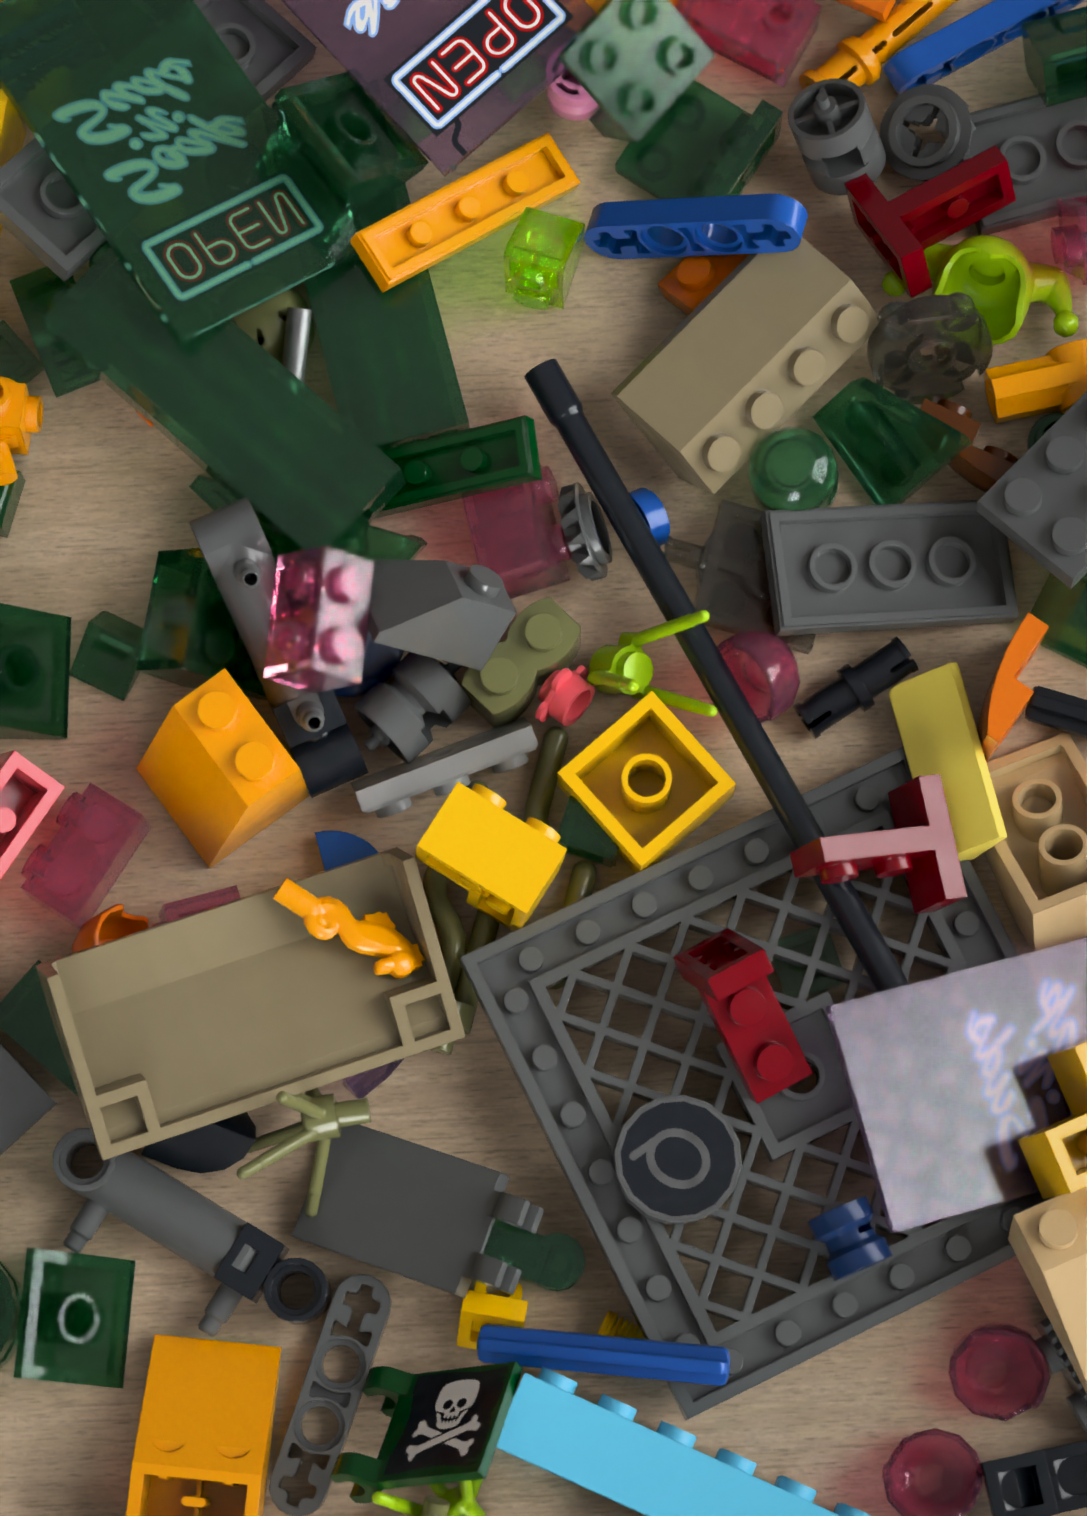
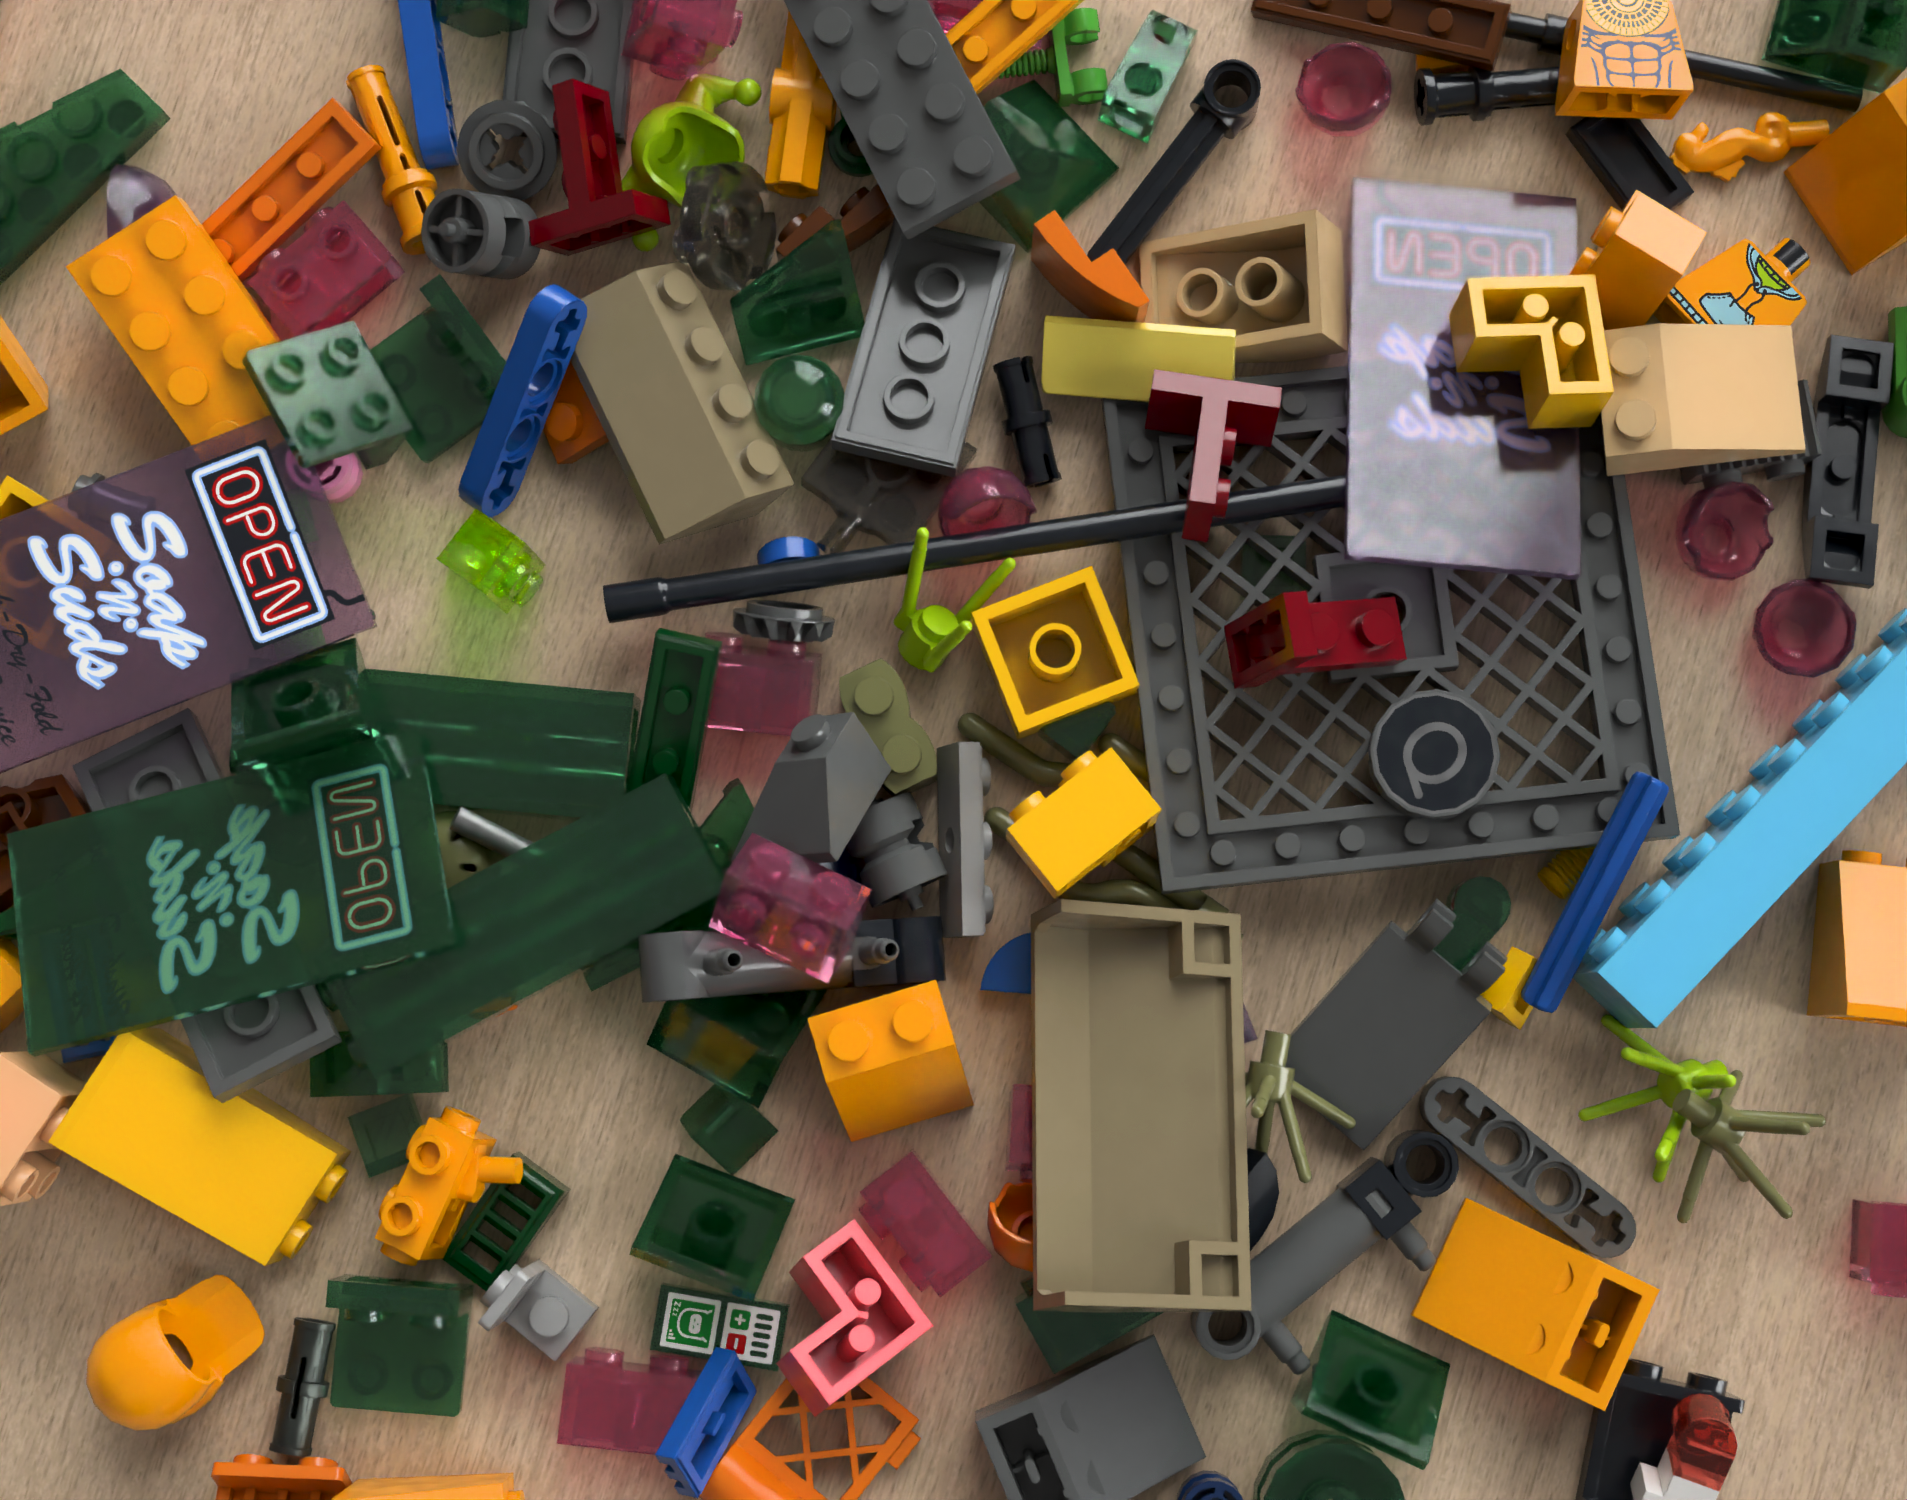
camera: 70 degrees left, 5 degrees up
(370, 936) = (1113, 969): light orange animal -> none
(438, 1430) = (1617, 1073): flag -> none
(464, 212) = (418, 622): light orange tile -> none
(565, 696) = (936, 700): coral plate -> none
(850, 1238) = (1567, 619): dark blue wheel -> none

